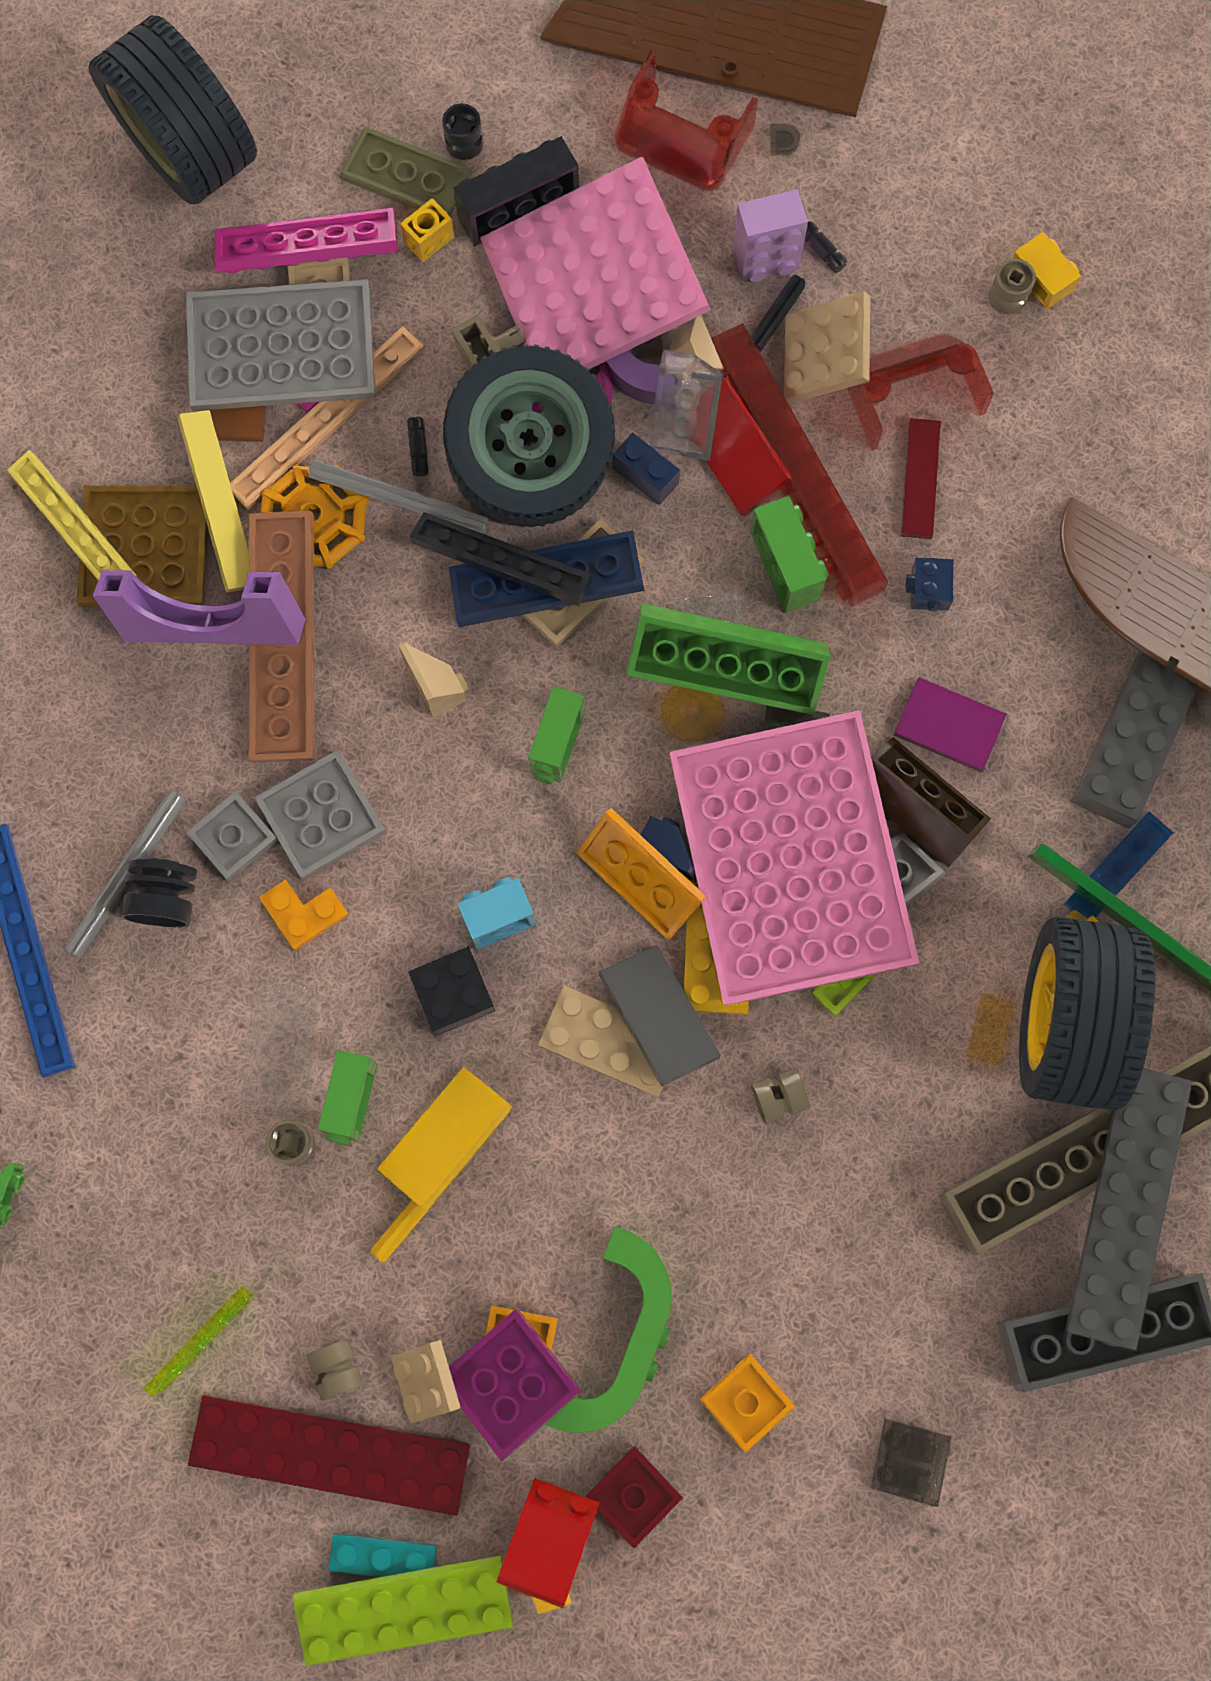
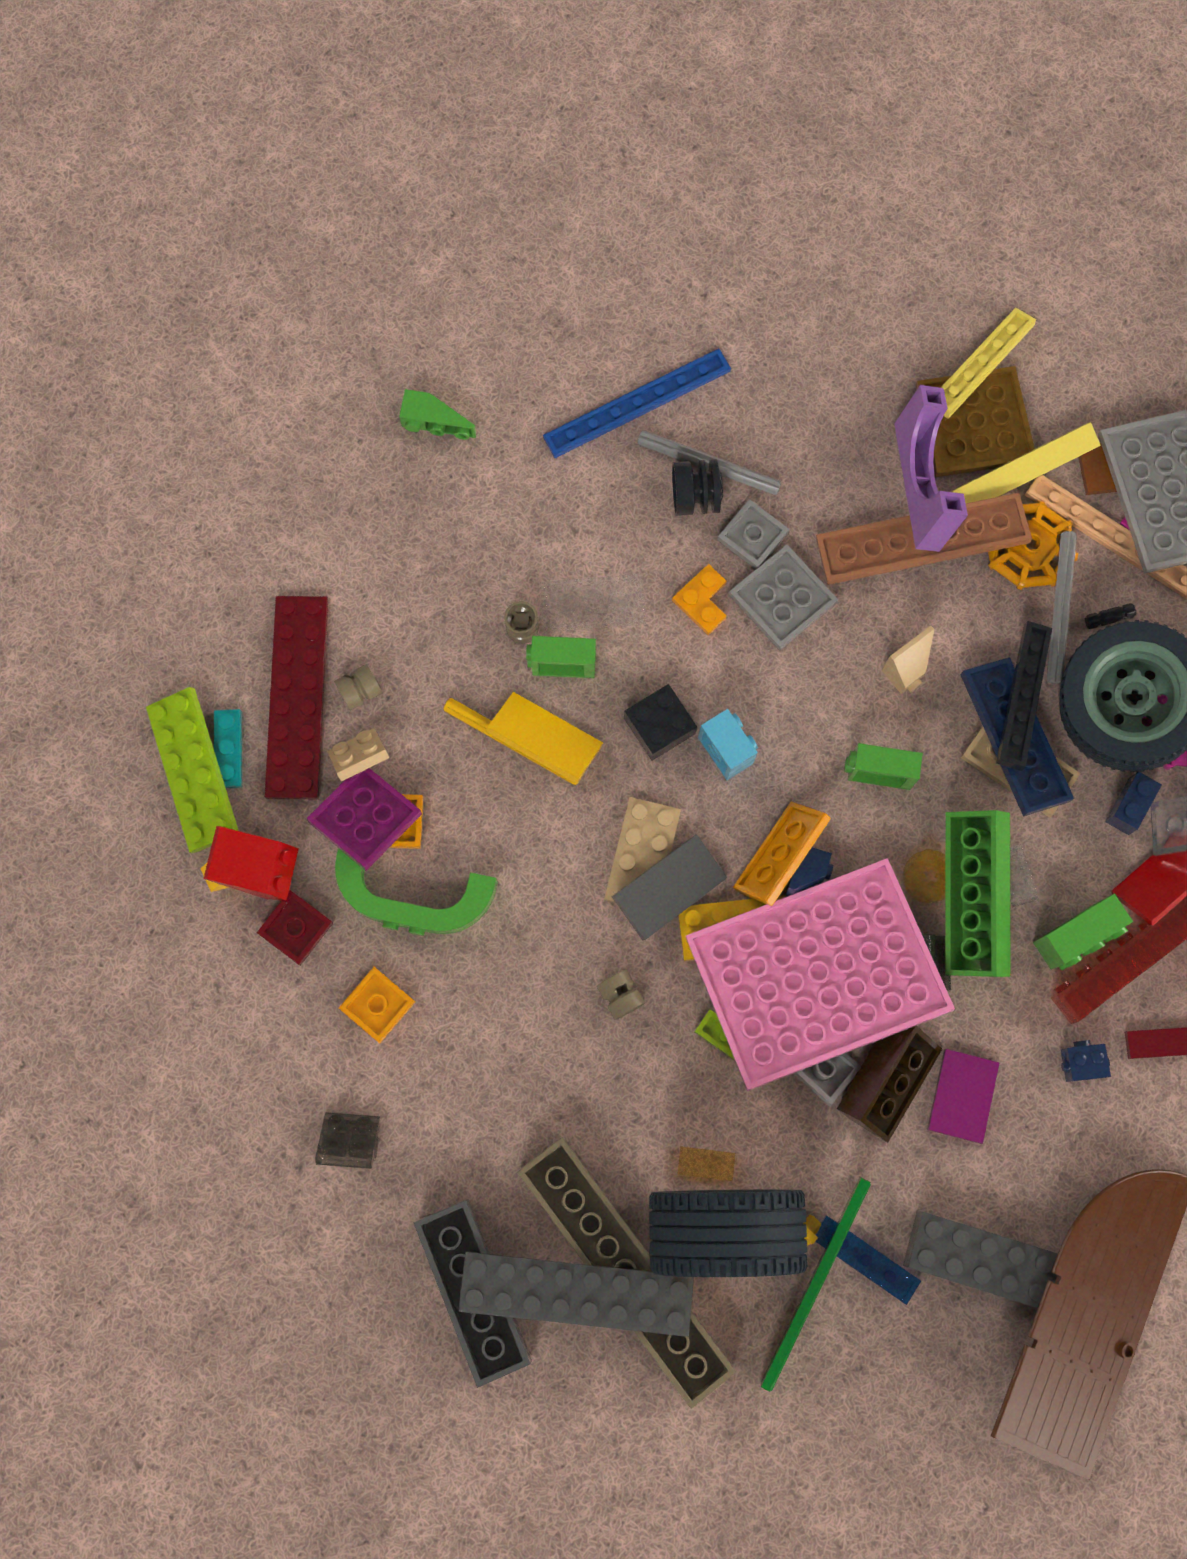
camera: 80 degrees right, 0 degrees up
(199, 1341) = (365, 586): clear neon green tile -> none

